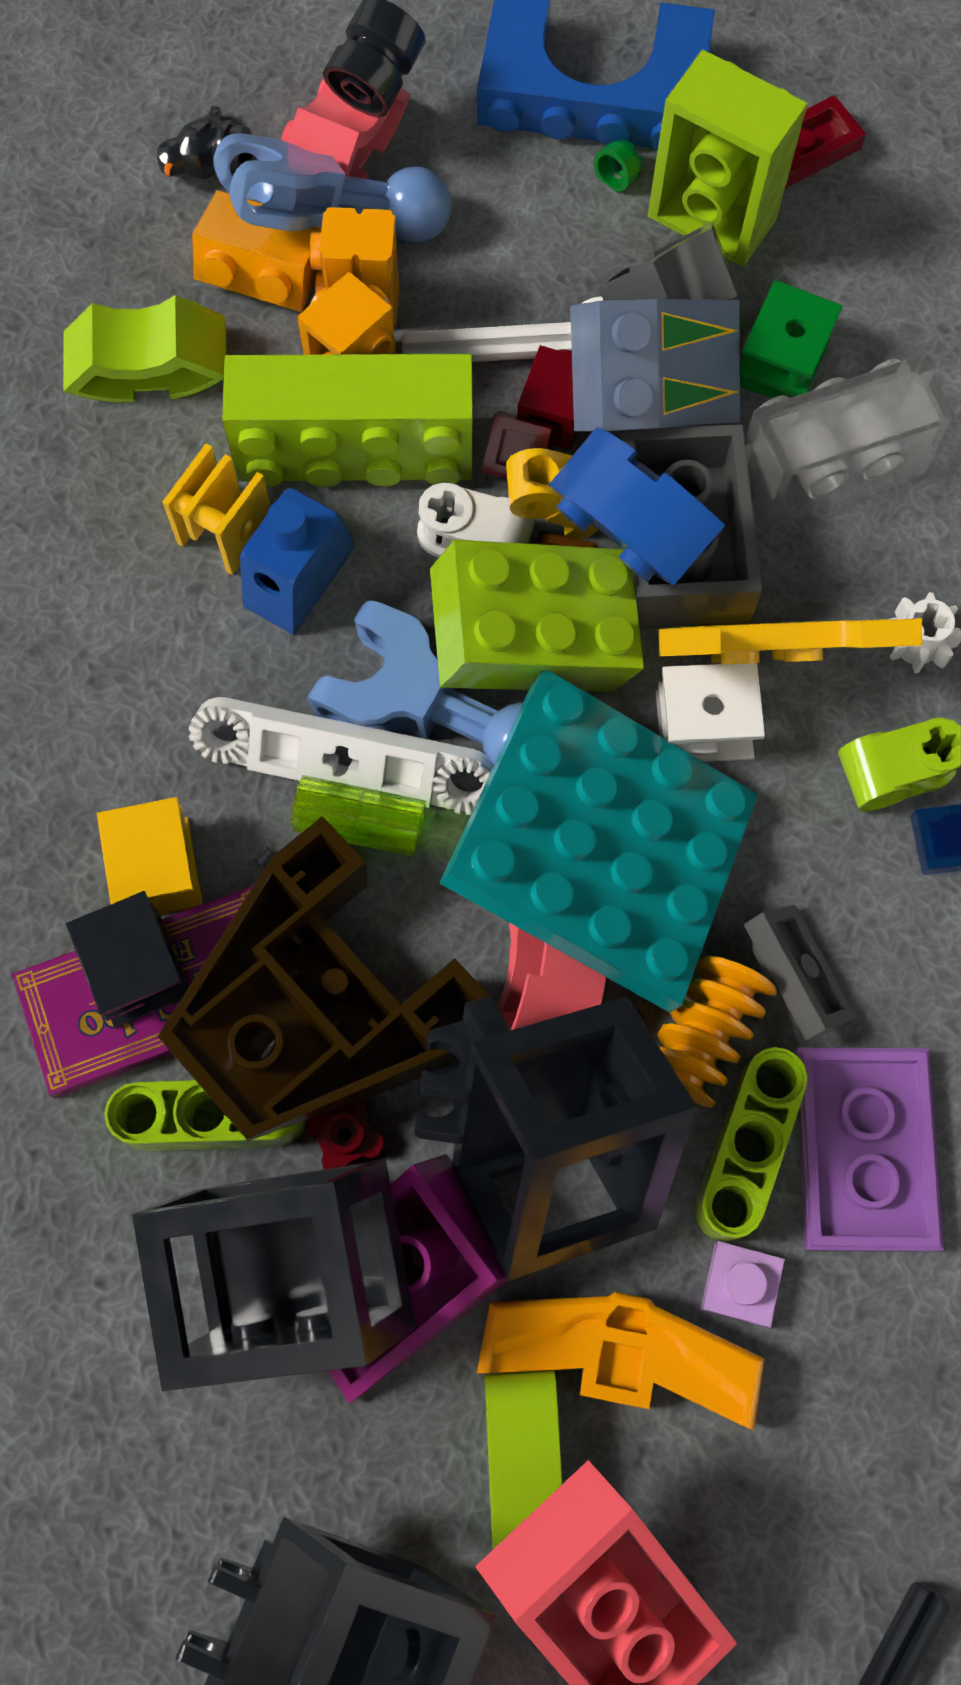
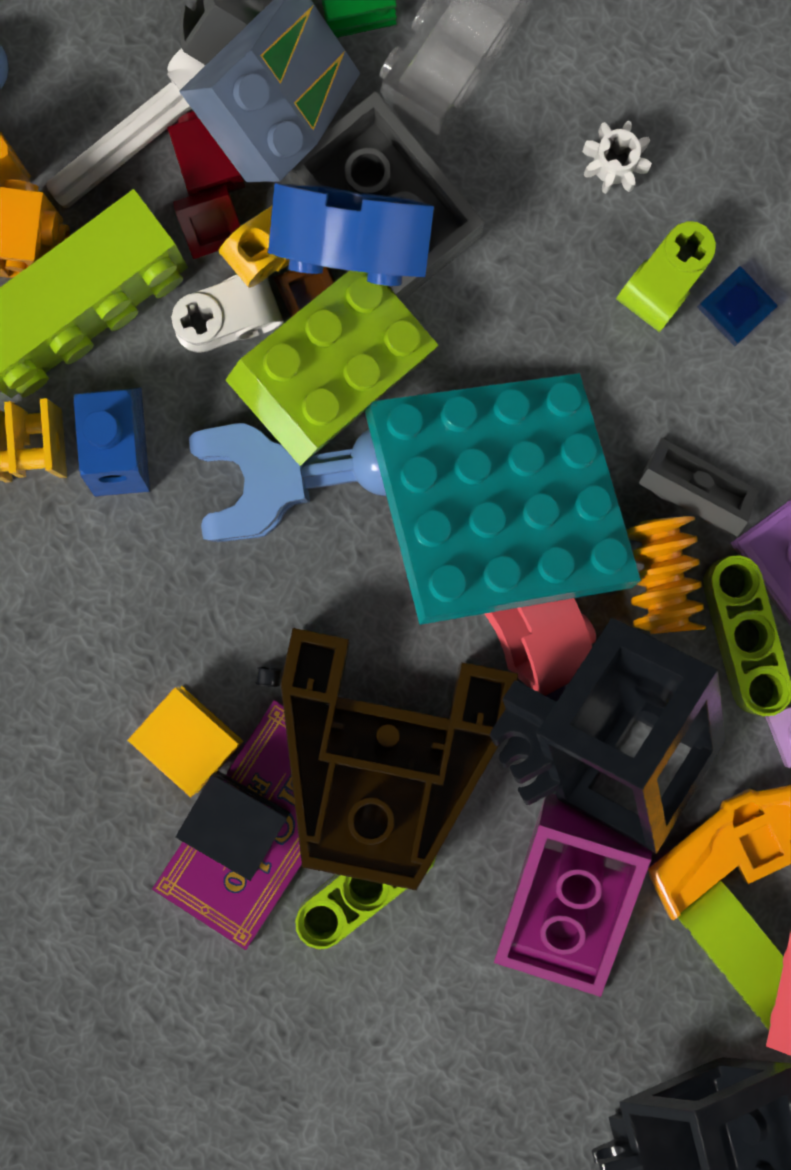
camera: 35 degrees left, 15 degrees up
(290, 1275) = (513, 953): black piece -> none
(304, 744) = (236, 576): white piece -> none
(361, 814) = (307, 598): clear neon green axle -> none
(363, 1140) = (473, 843): dark red plate -> none
(711, 710) = (504, 336): white piece -> none
(787, 640) = (525, 238): yellow wing -> none

